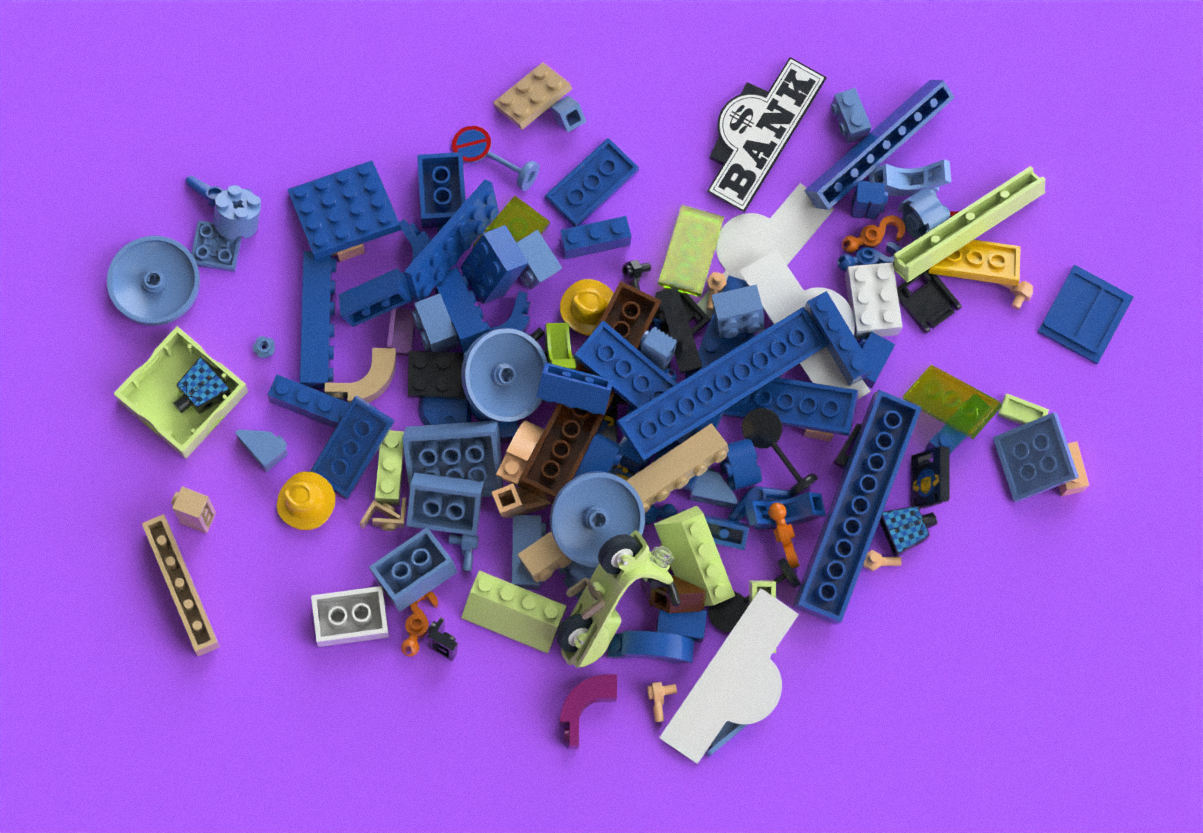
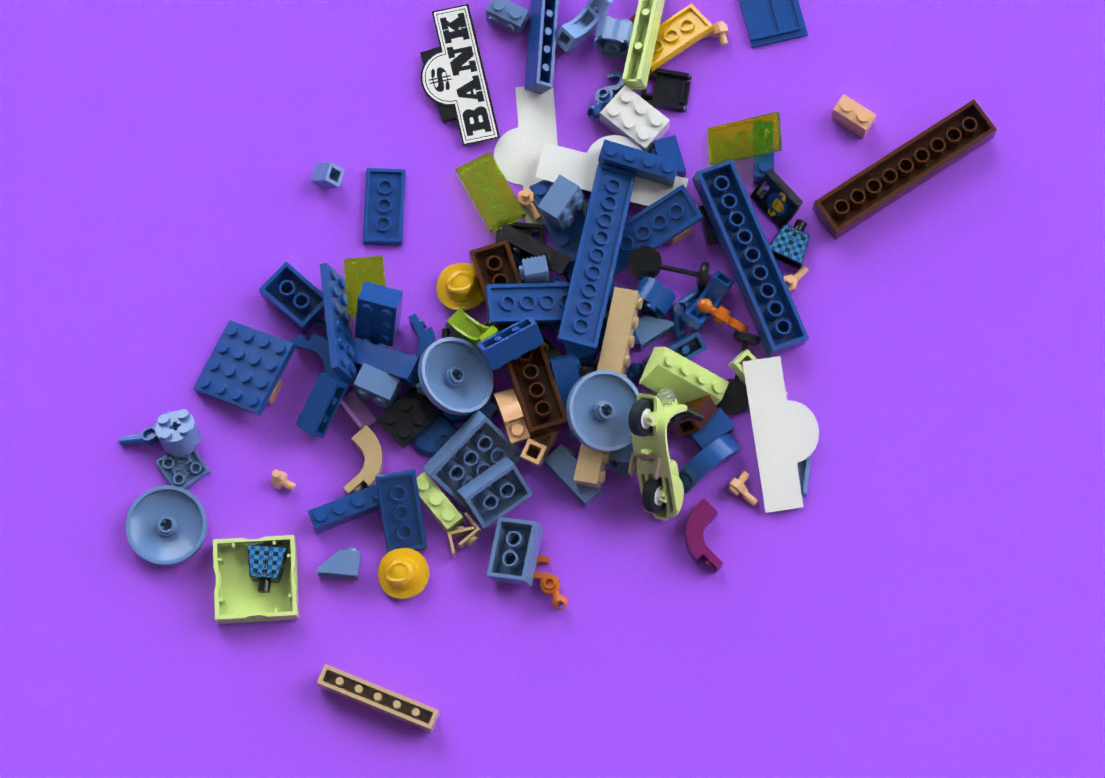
camera: 35 degrees left, 0 degrees up
(193, 509) = (341, 643): tan brick -> none
(268, 351) = (279, 507): medium blue plate -> none
(283, 329) = (280, 480): none -> light nougat piece
(316, 321) = (297, 454): blue brick -> none
(349, 616) = (504, 617): white brick -> none
(442, 643) = (578, 580): black bracket -> none
(468, 543) = (531, 503): medium blue piece -> none
(476, 145) = (286, 248): piece -> none
(513, 612) = (601, 520): yellowish green slope -> none
(532, 95) = (292, 184): tan plate -> none
(541, 260) = (405, 281): medium blue brick -> none
(595, 237) = (422, 239): blue brick -> none
(633, 271) = (467, 239): black piece -> none
(868, 200) = (571, 59): blue brick -> none
(872, 235) = (594, 80): orange piece -> none
(1020, 410) = (792, 106): yellowish green tile -> none
(1035, 457) = (827, 127): medium blue plate -> none
(1070, 555) = (904, 169): none -> reddish brown brick

